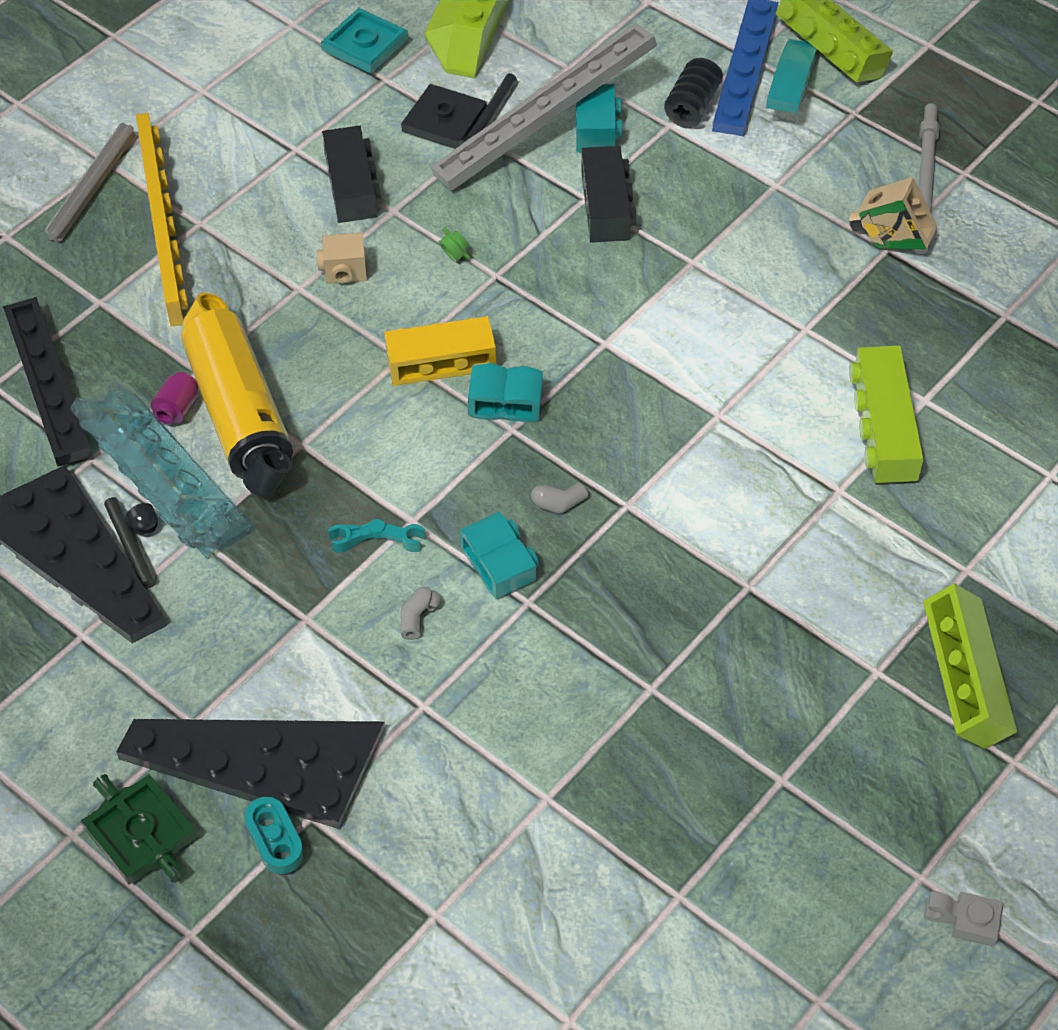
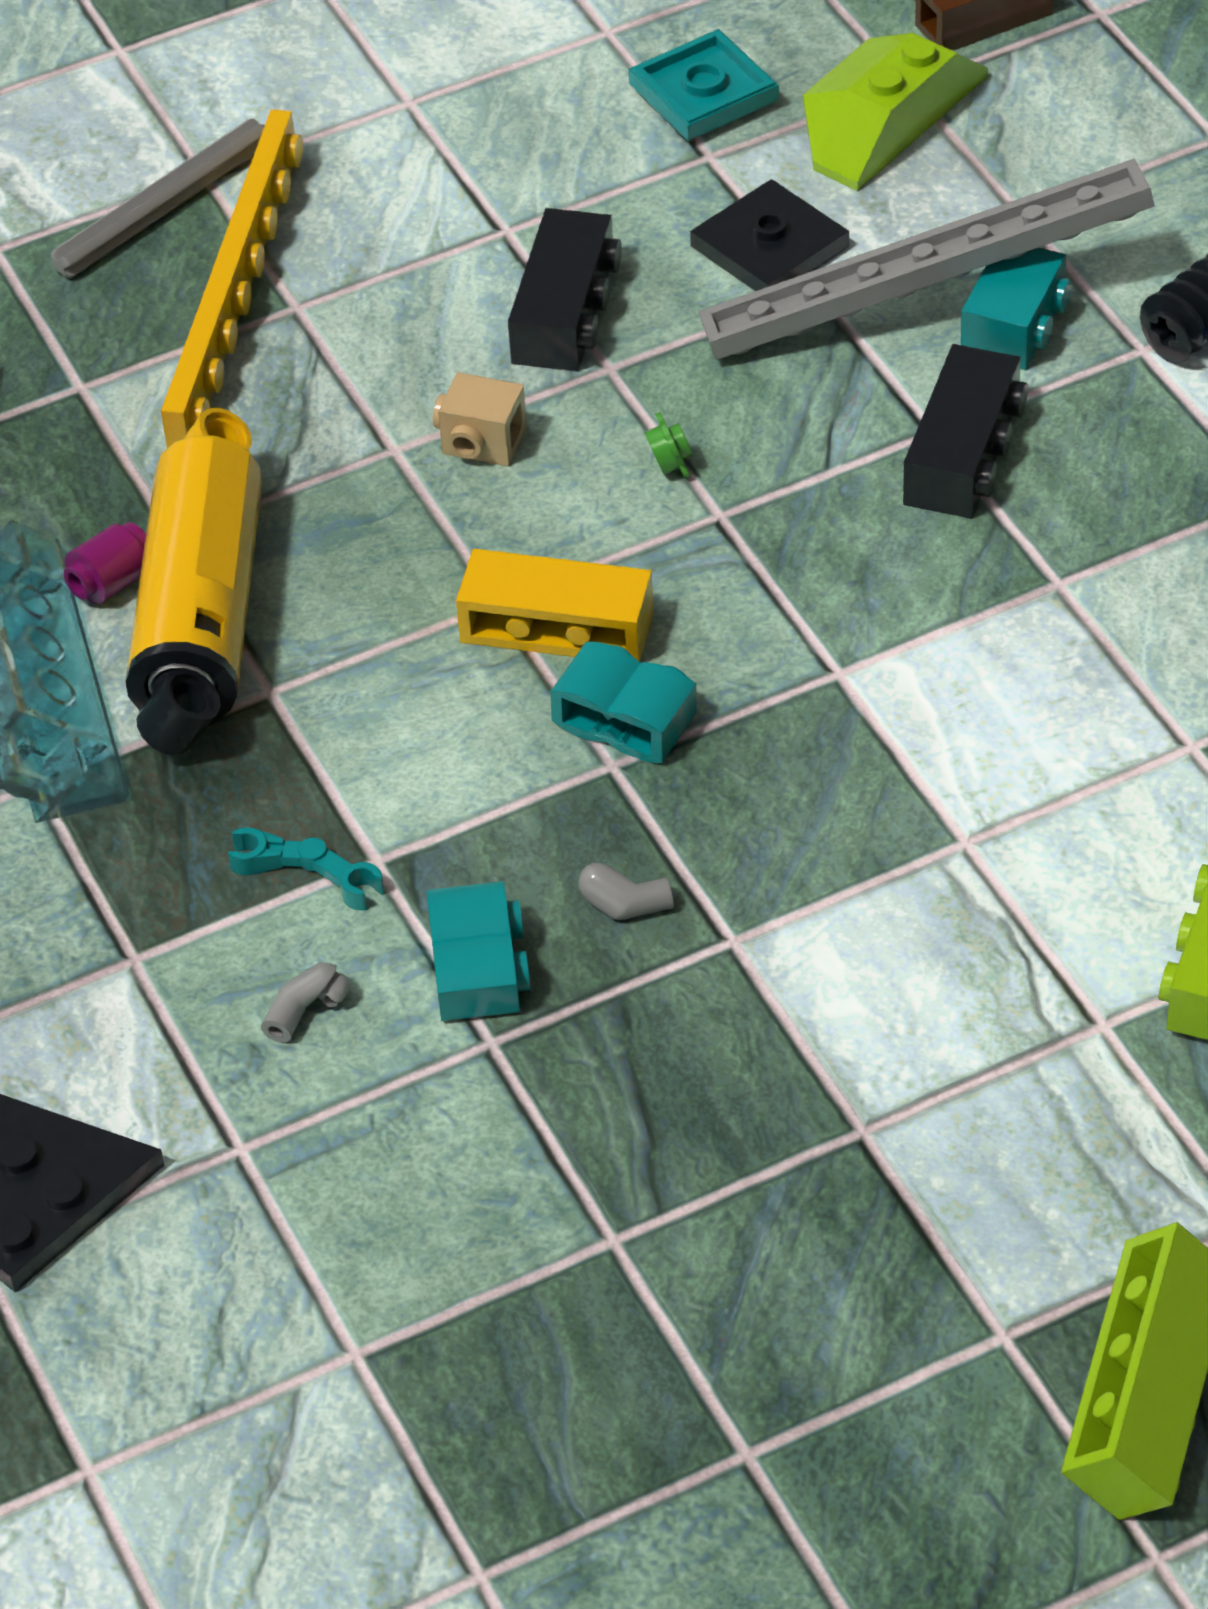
camera: 25 degrees right, 5 degrees down
(494, 104) = (870, 234): black bar -> none

